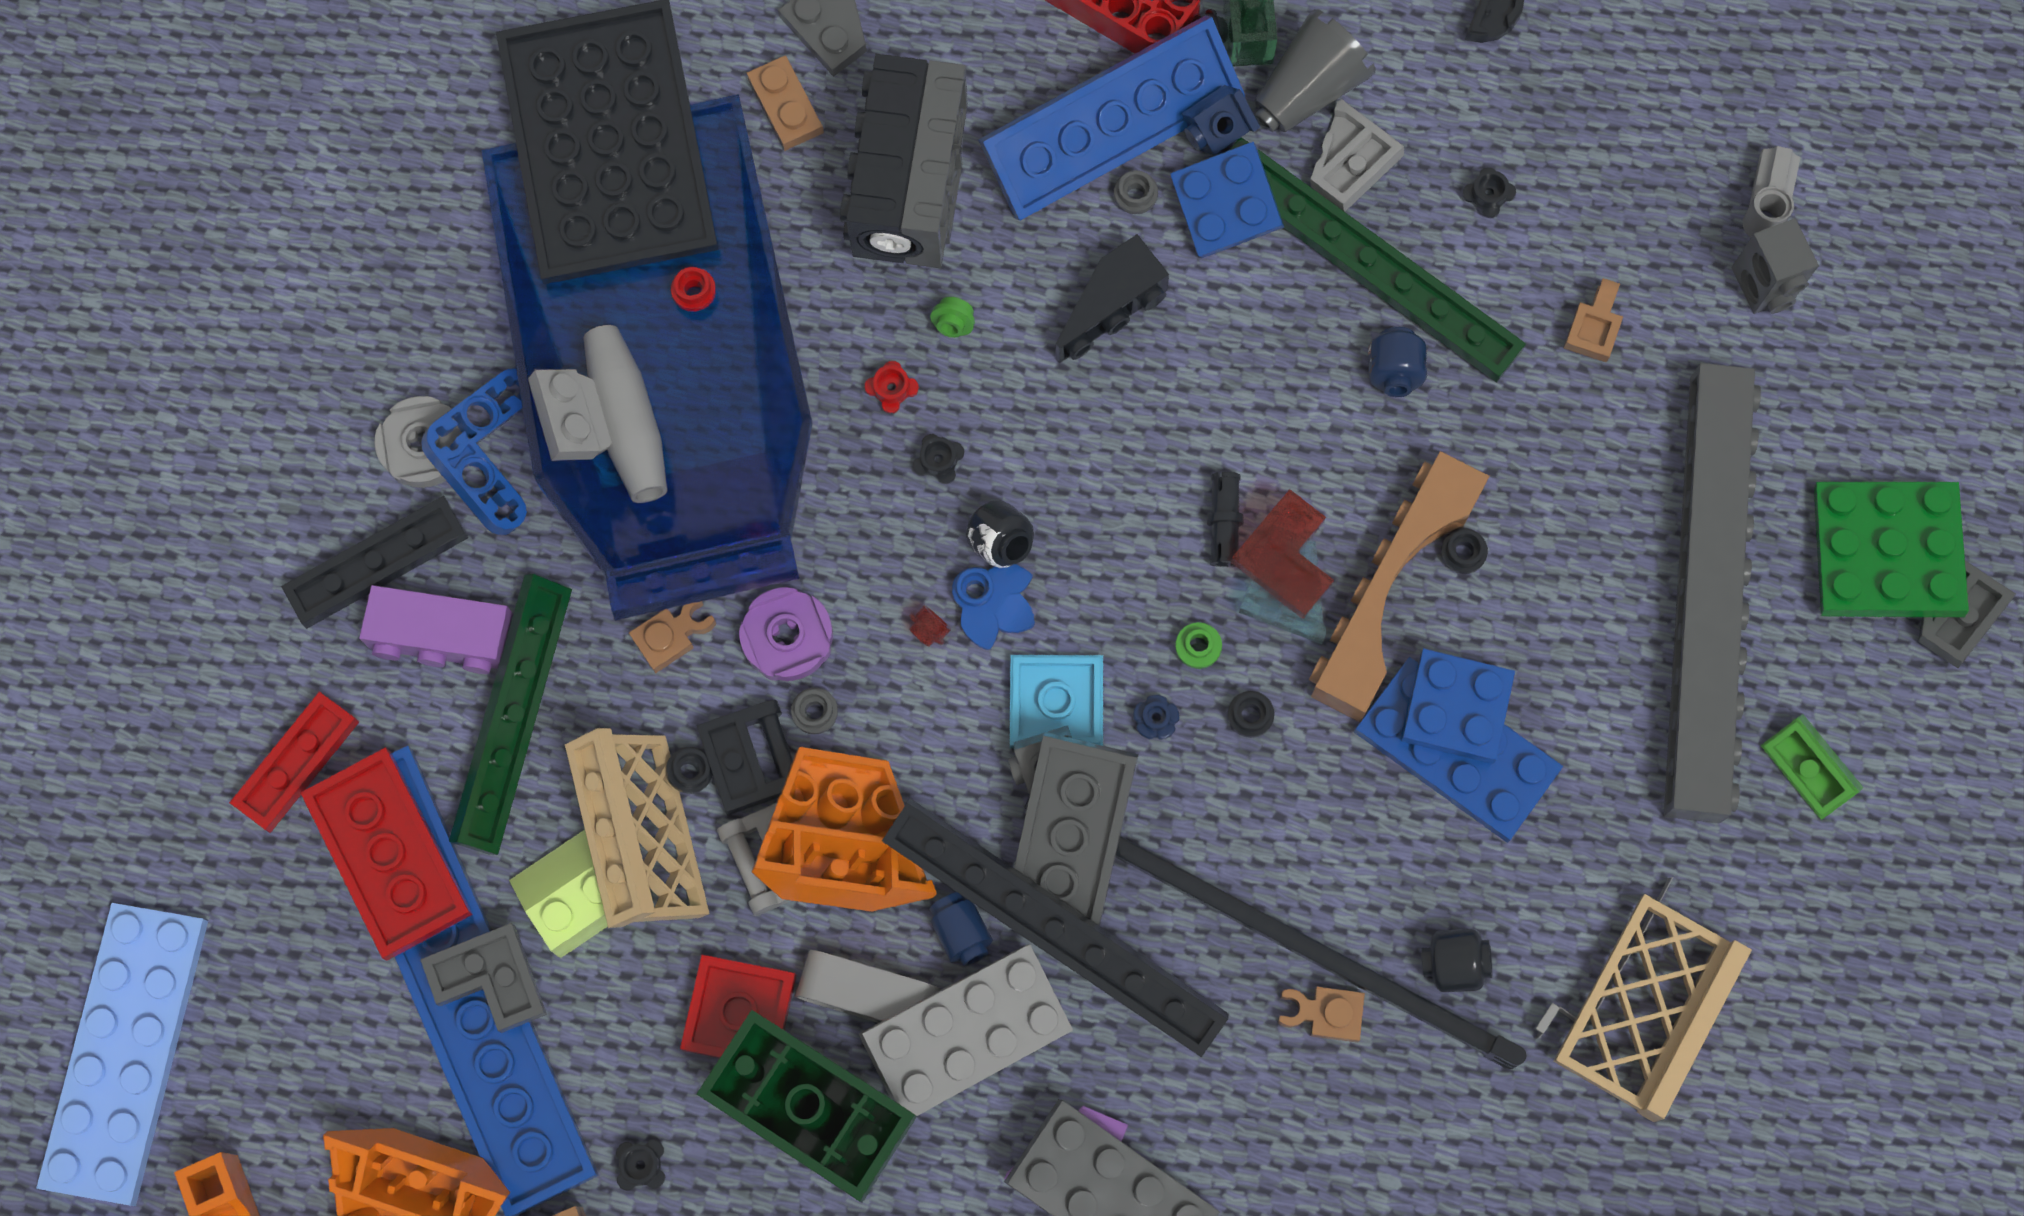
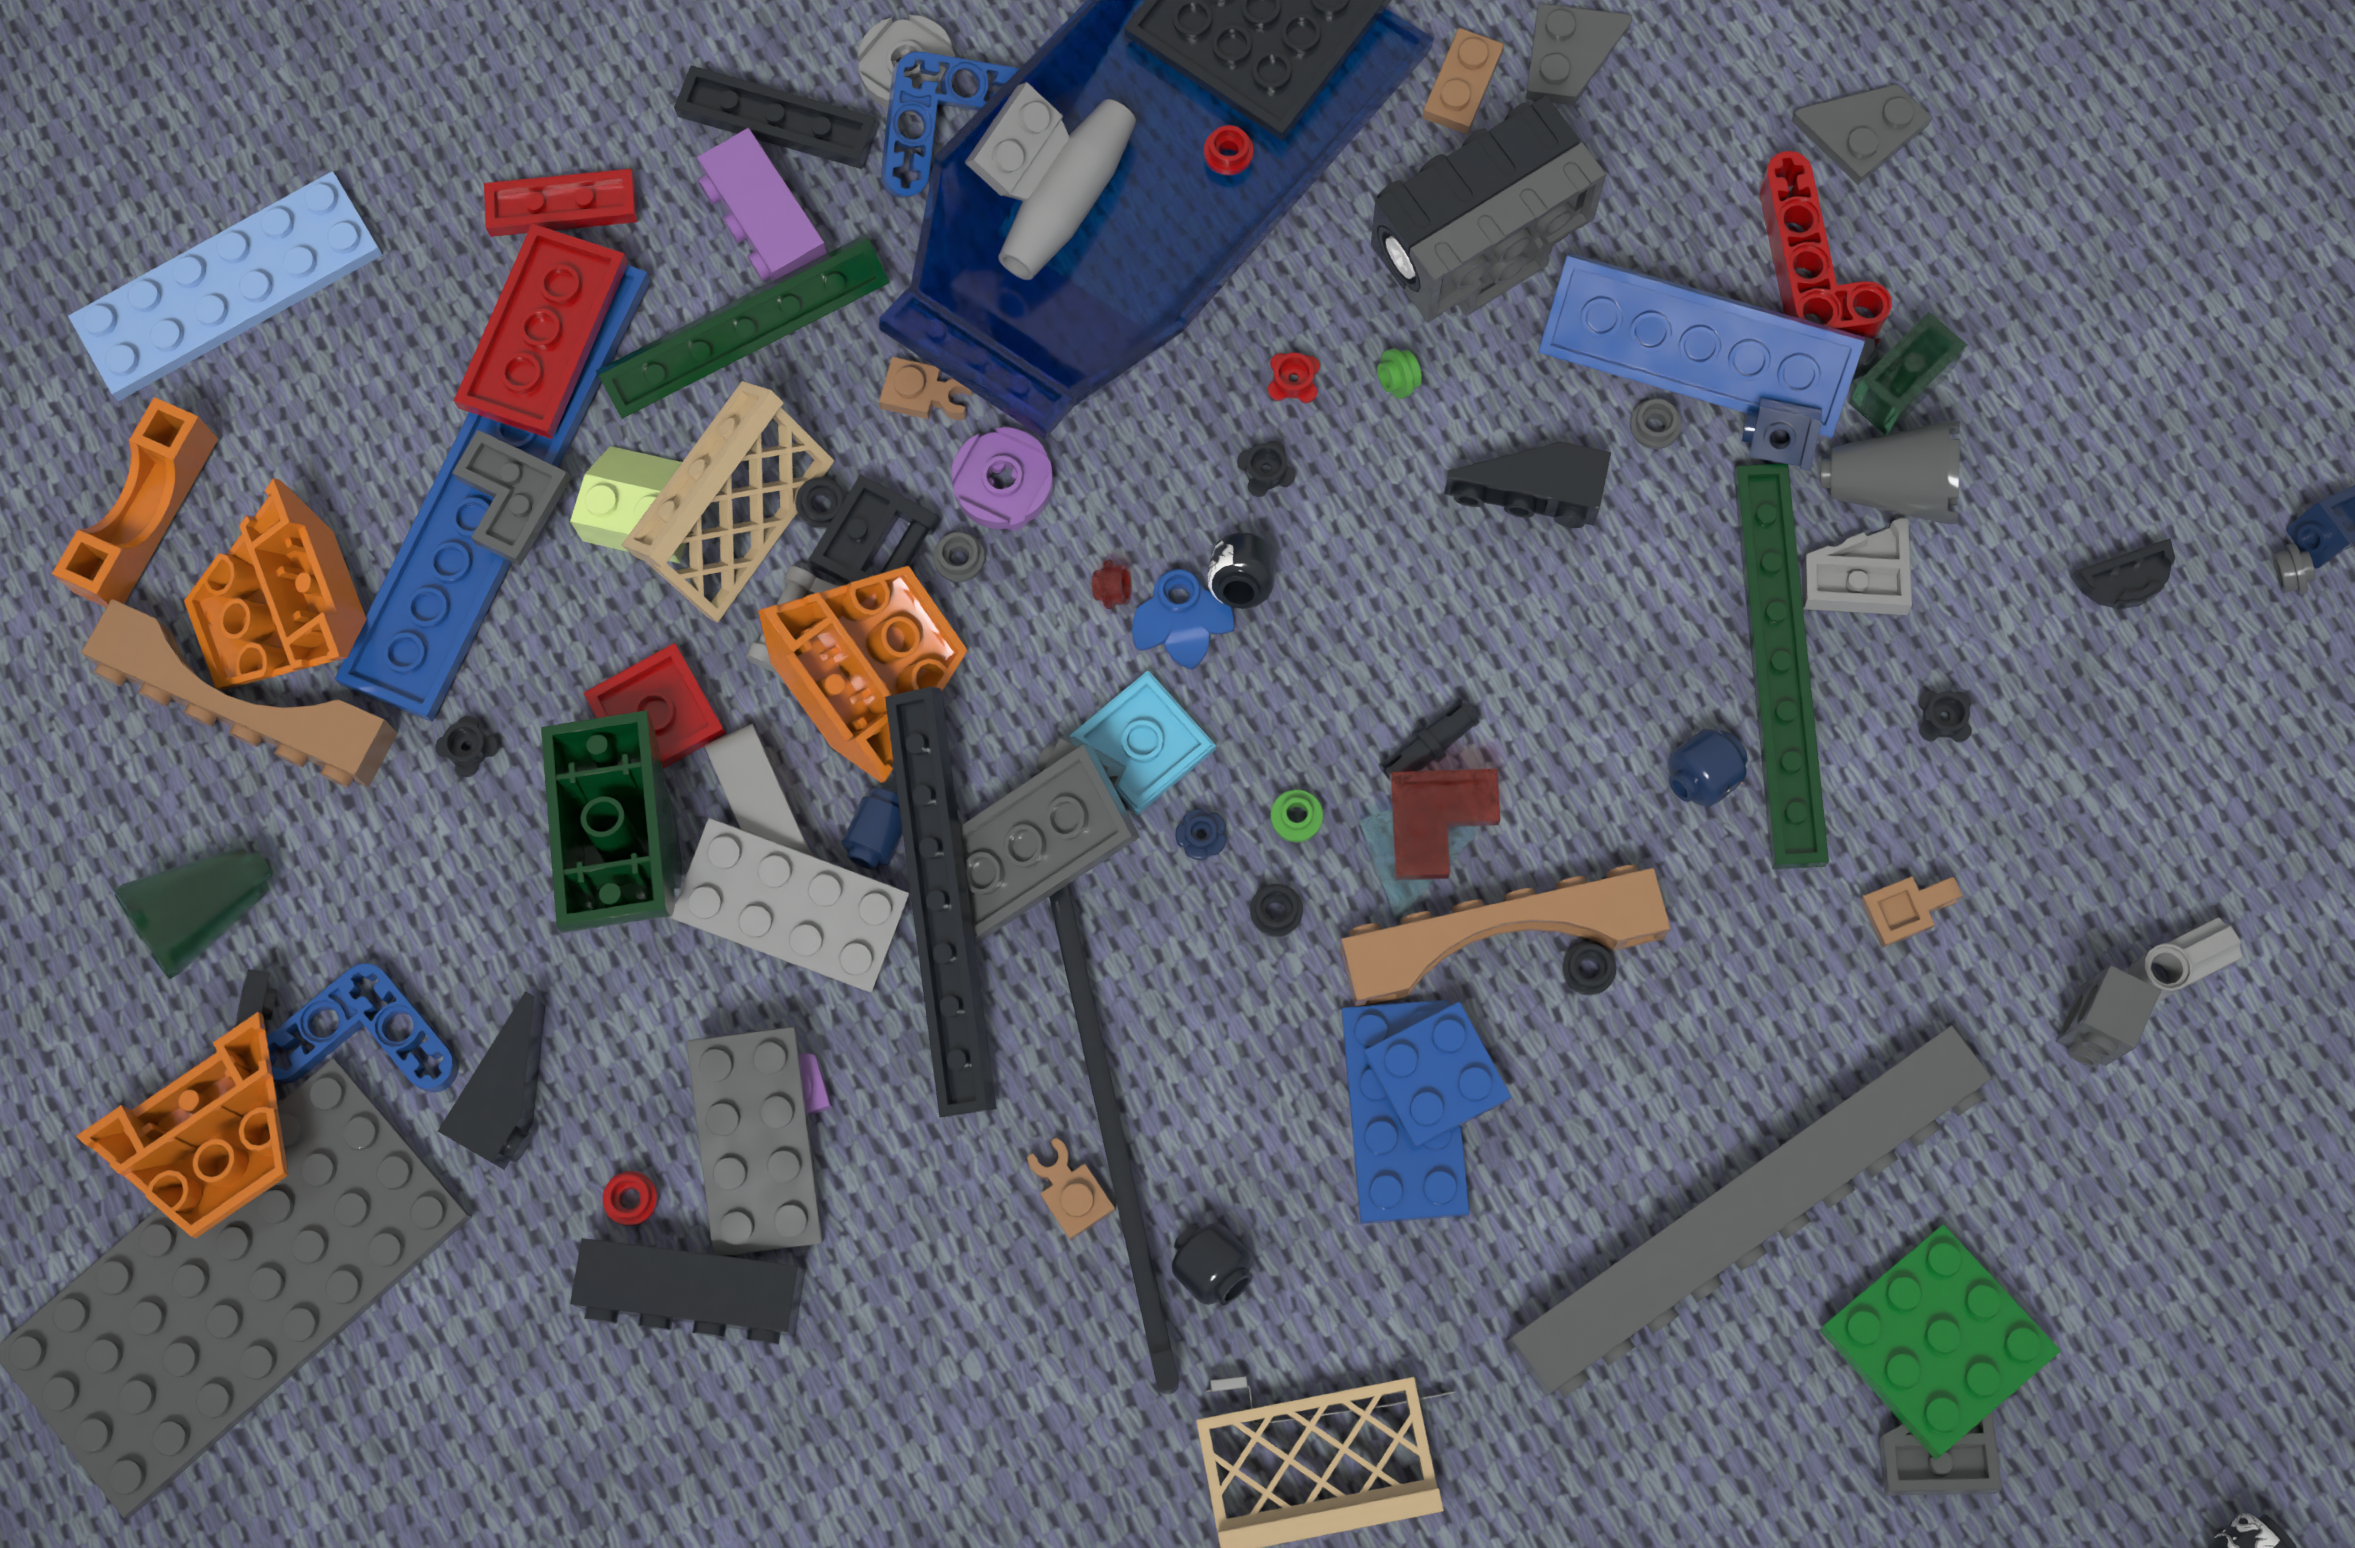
camera: 50 degrees right, 0 degrees up
(1227, 200) = (1717, 501): blue plate -> none
(1812, 766) = (1672, 1436): bright green slope -> none

